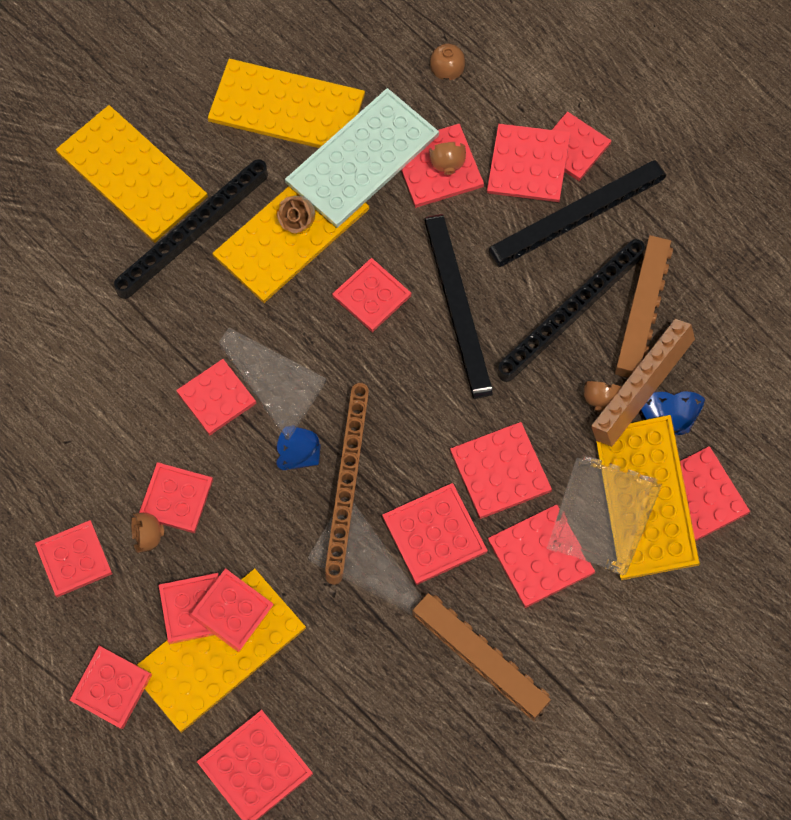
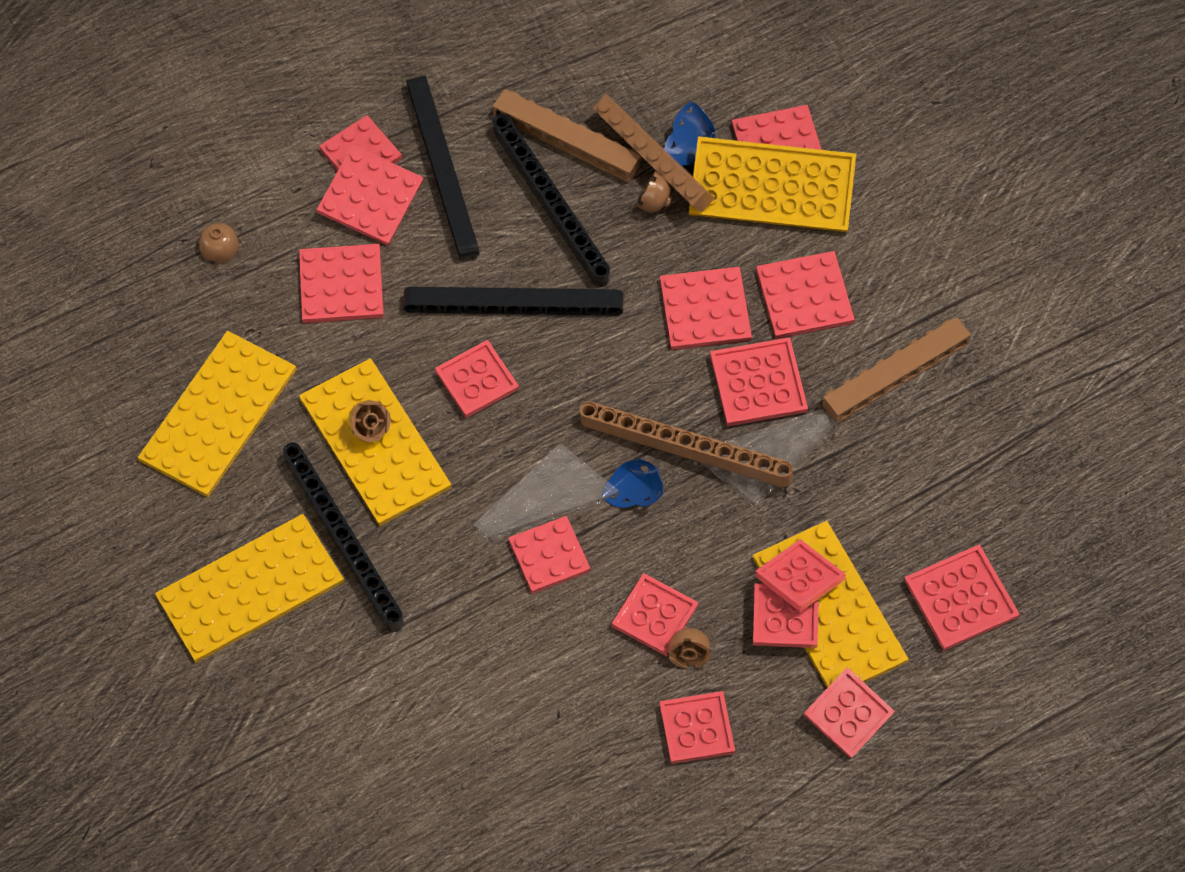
camera: 75 degrees left, 5 degrees down
(362, 157) = (314, 346): light aqua plate -> none
(448, 157) = (348, 262): medium nougat cylinder -> none
(603, 514) = (787, 217): clear windscreen -> none

